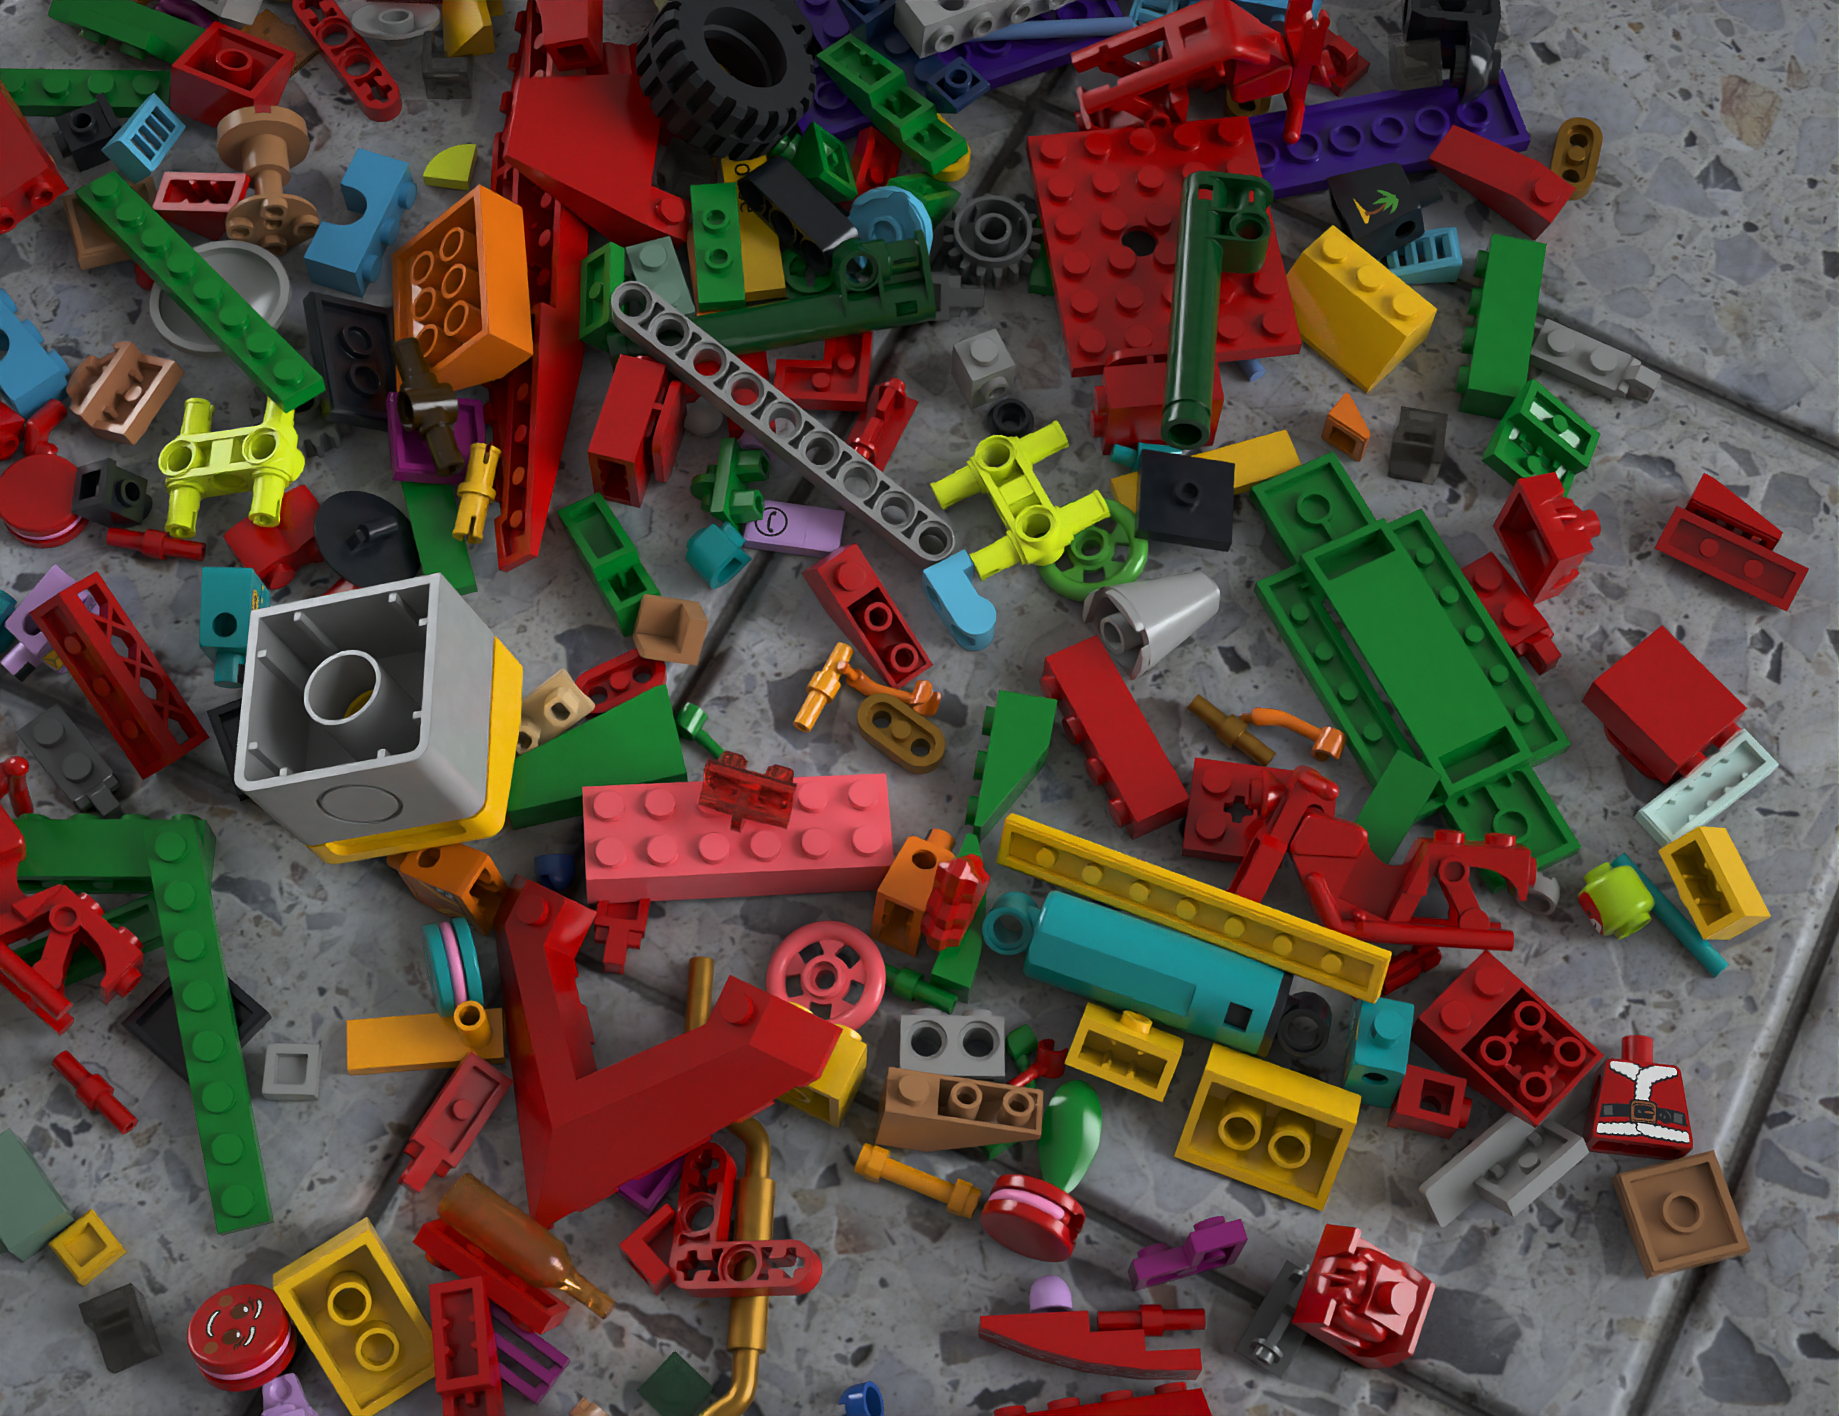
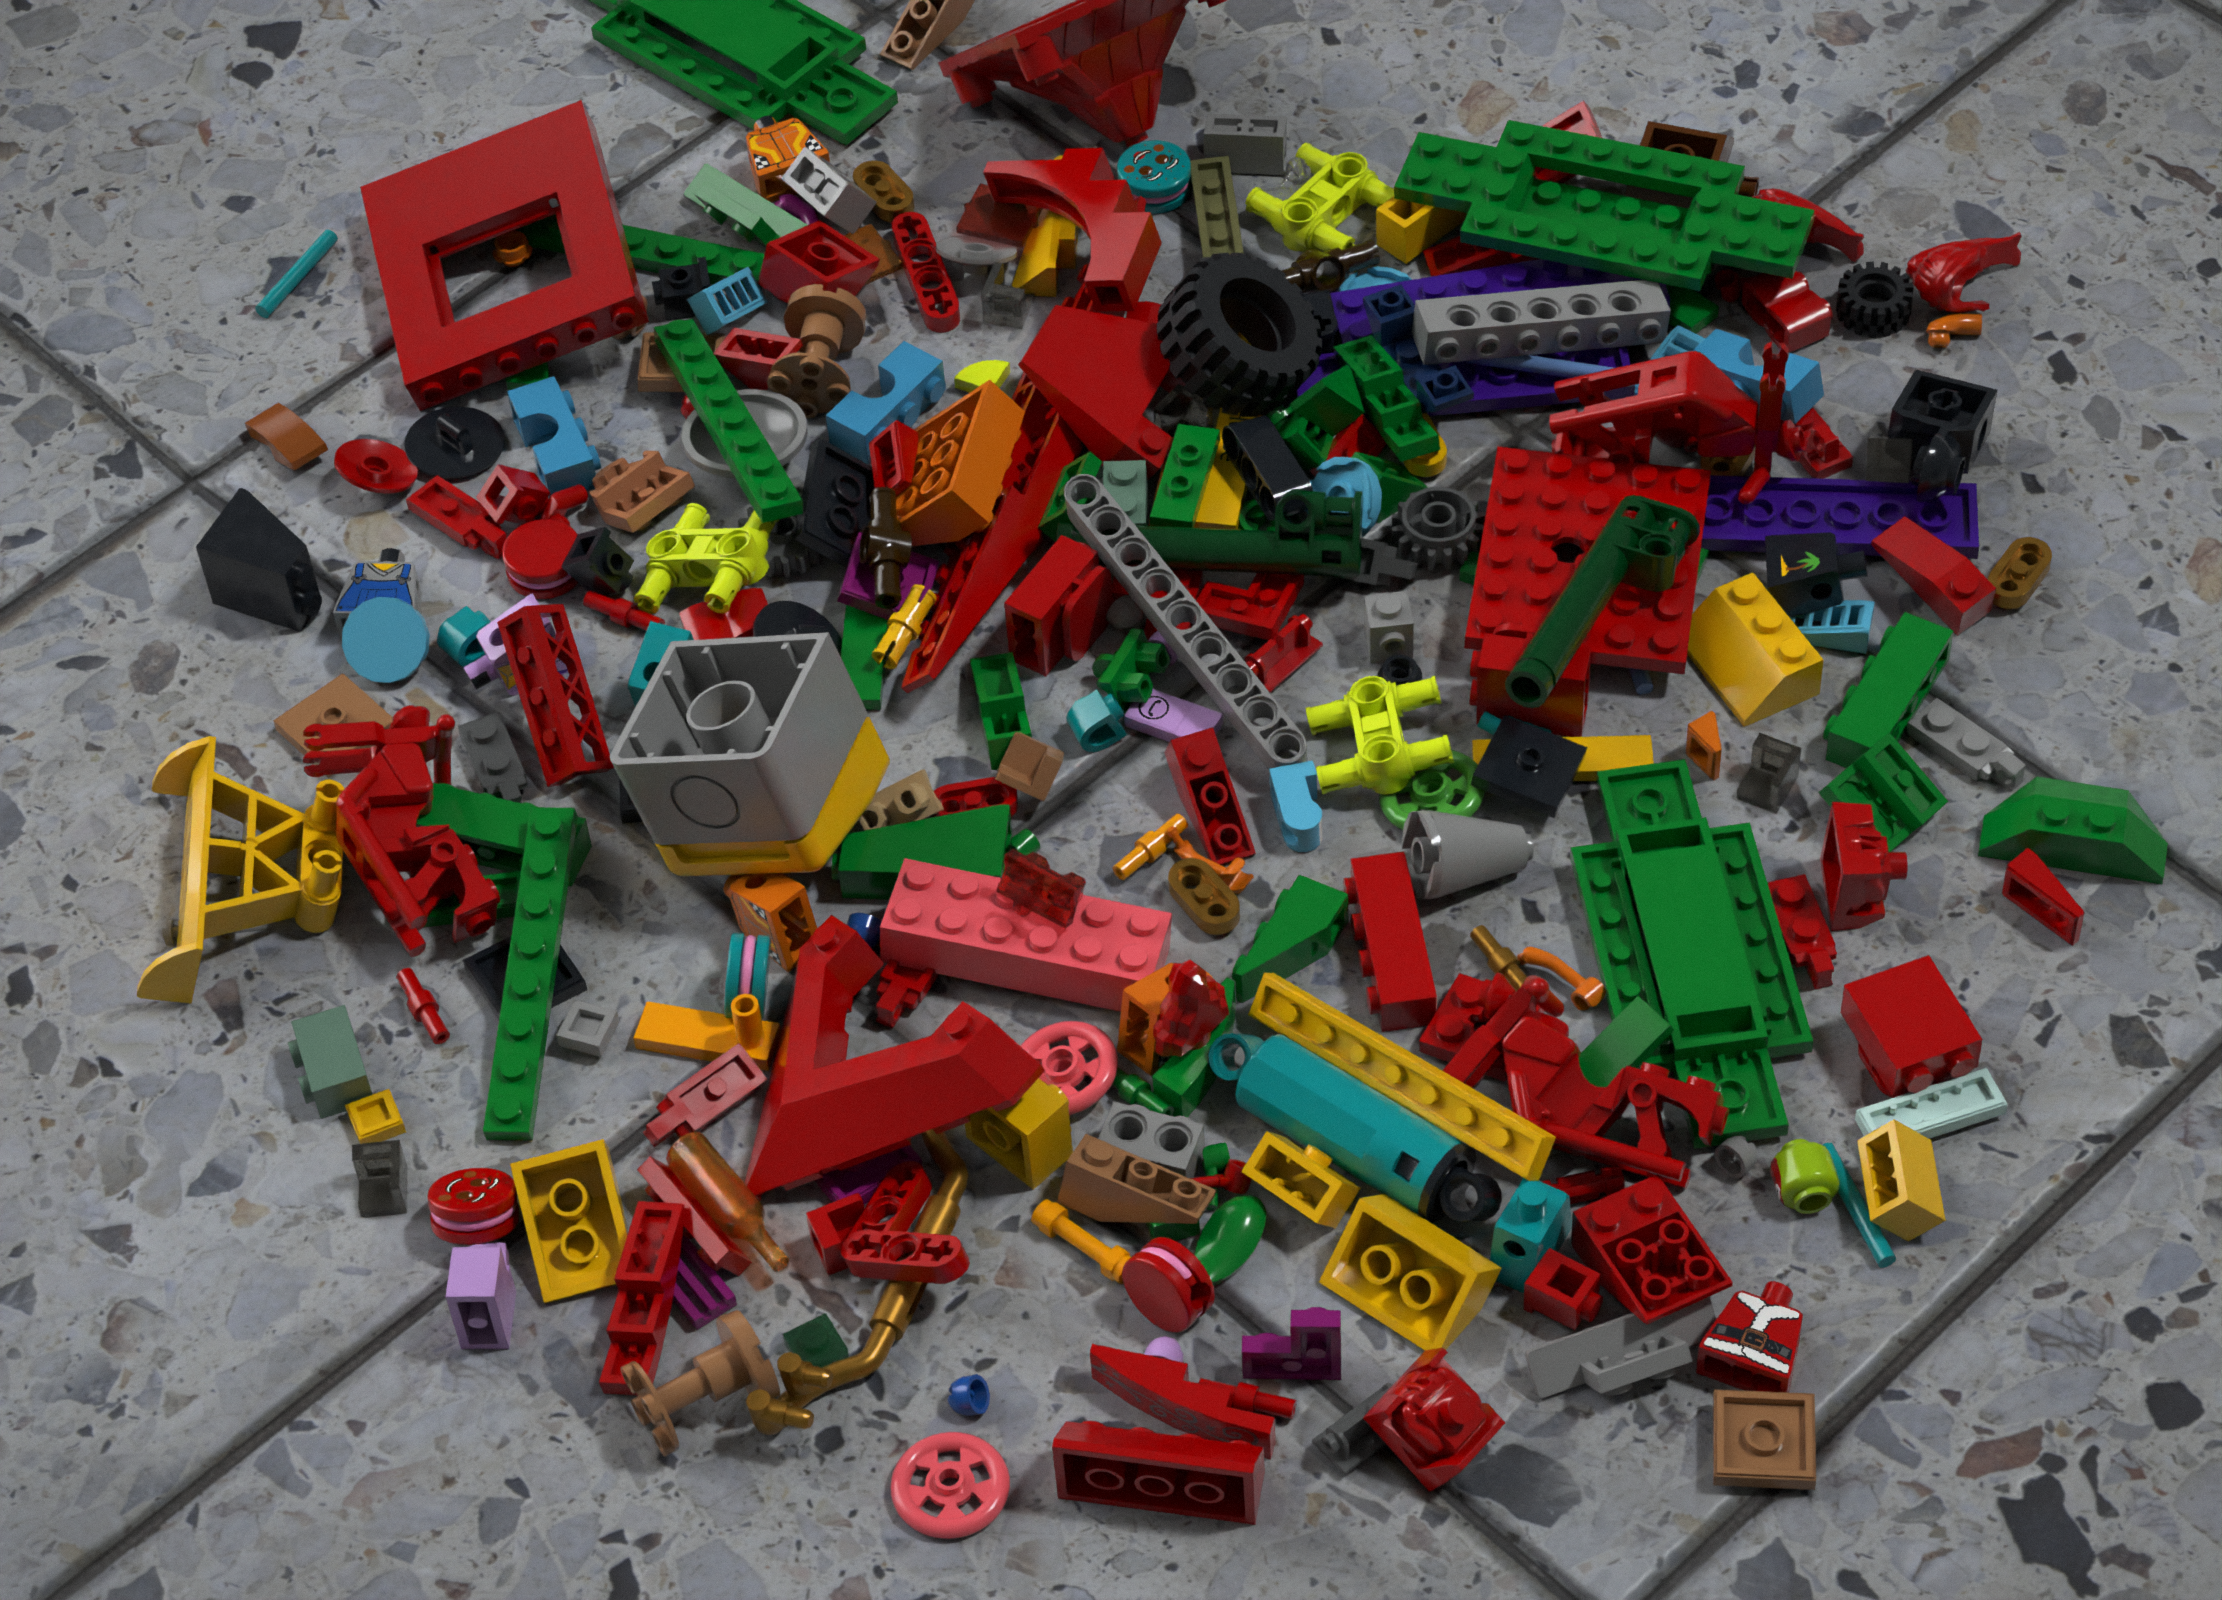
camera: 25 degrees right, 15 degrees down
(387, 280) = (894, 456): none -> red slope
(840, 121) = (1331, 402): none -> green slope
(1726, 434) = (2076, 830): none -> green wedge
(1731, 558) = (2033, 929): red plate -> none

